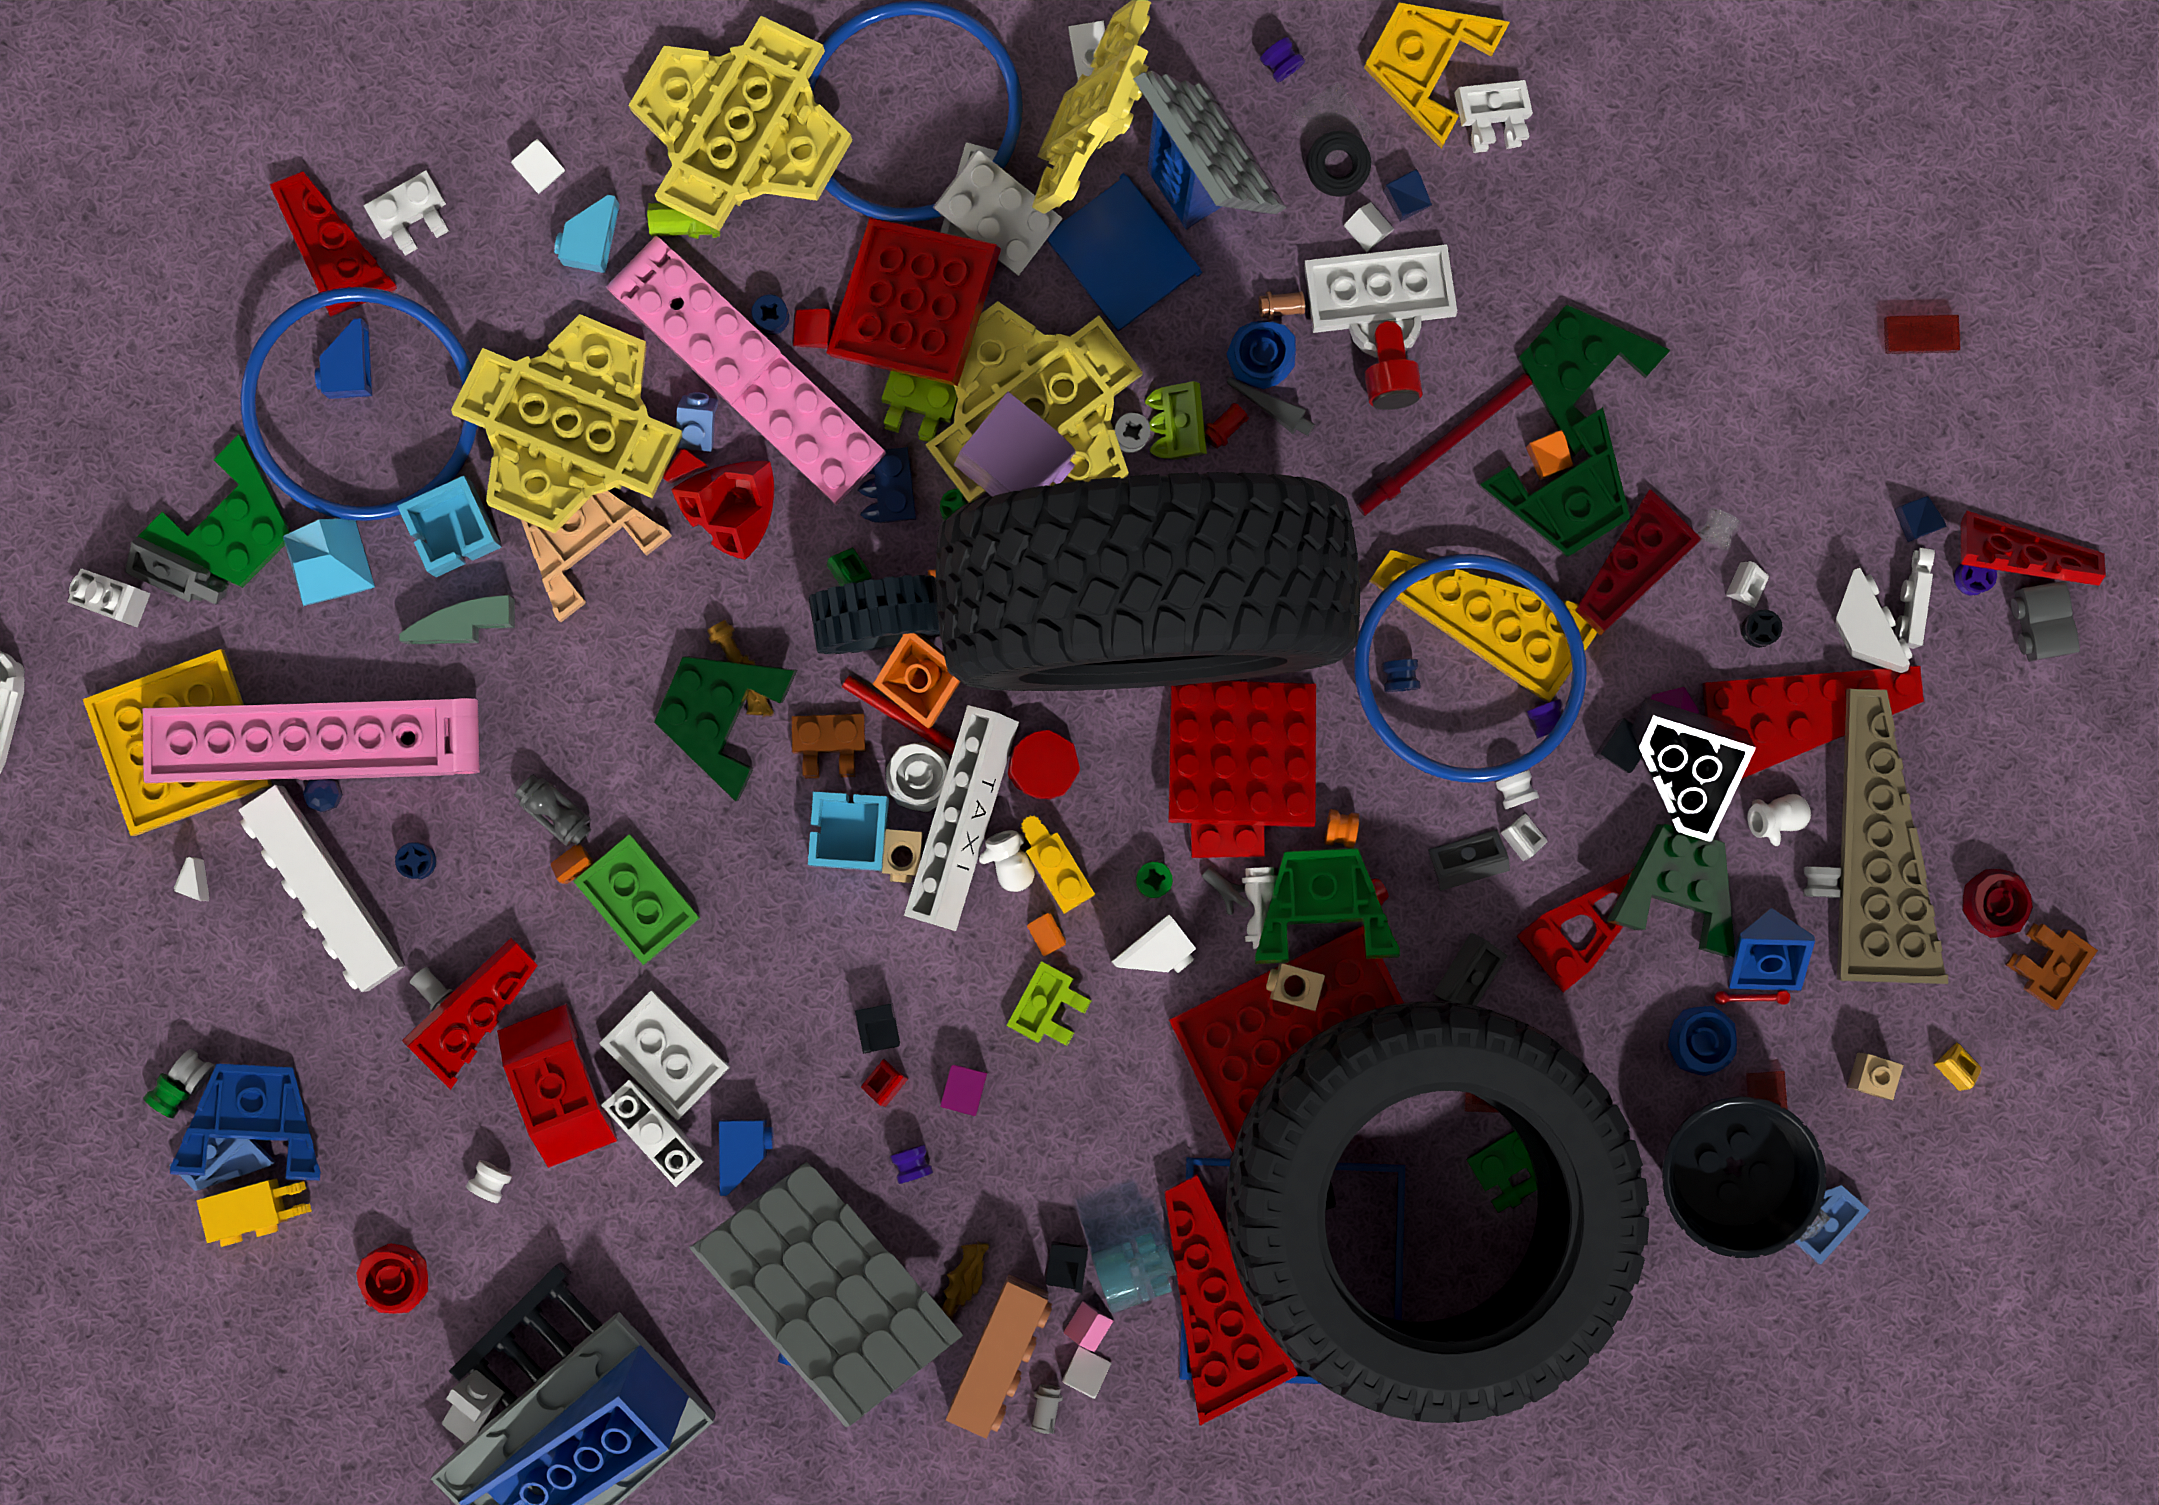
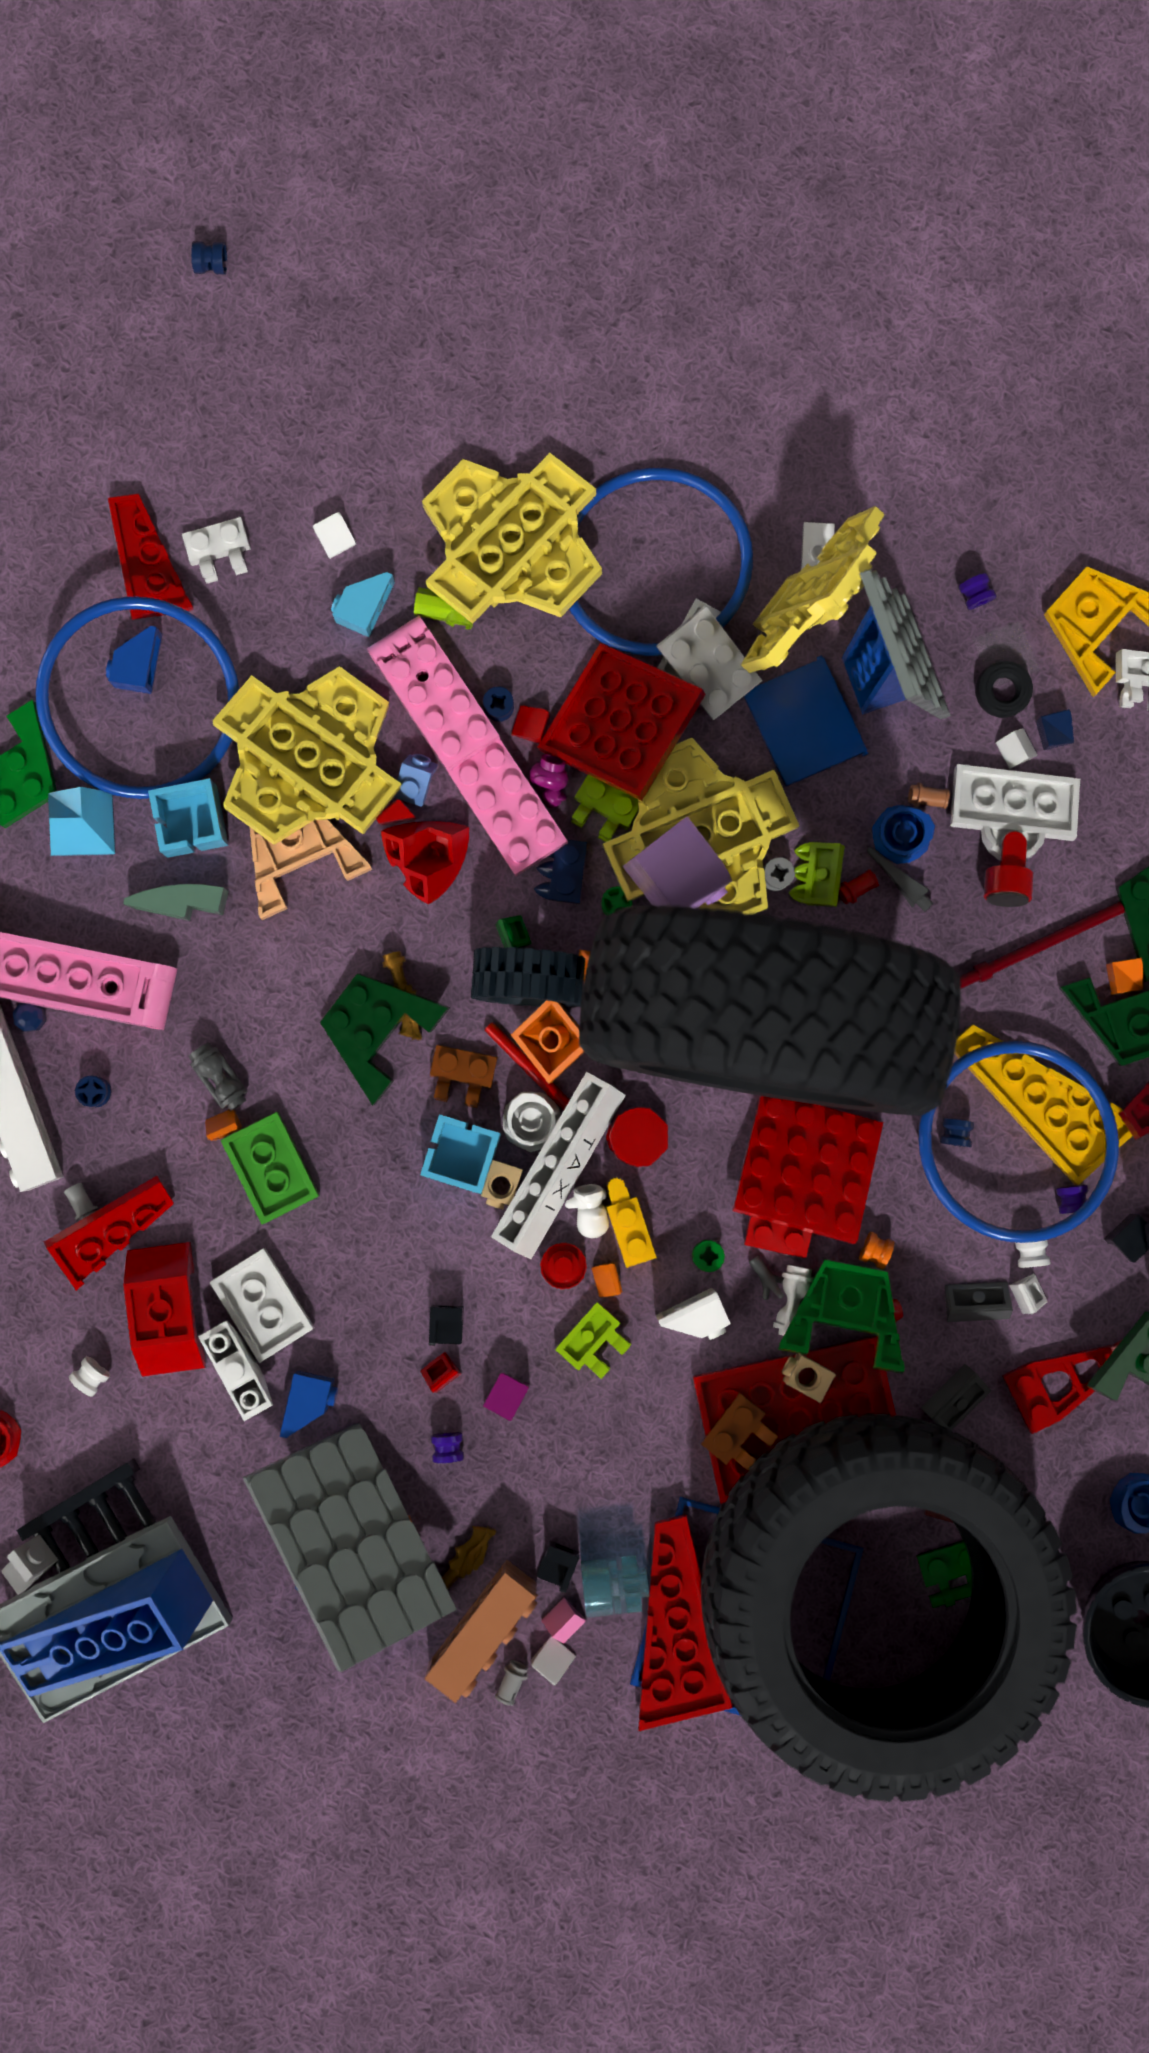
camera: 15 degrees right, 0 degrees up
(849, 381) = (550, 775): none -> magenta animal
(994, 929) = (563, 1265): none -> red plate
(1227, 1065) = (734, 1428): none -> dark orange plate

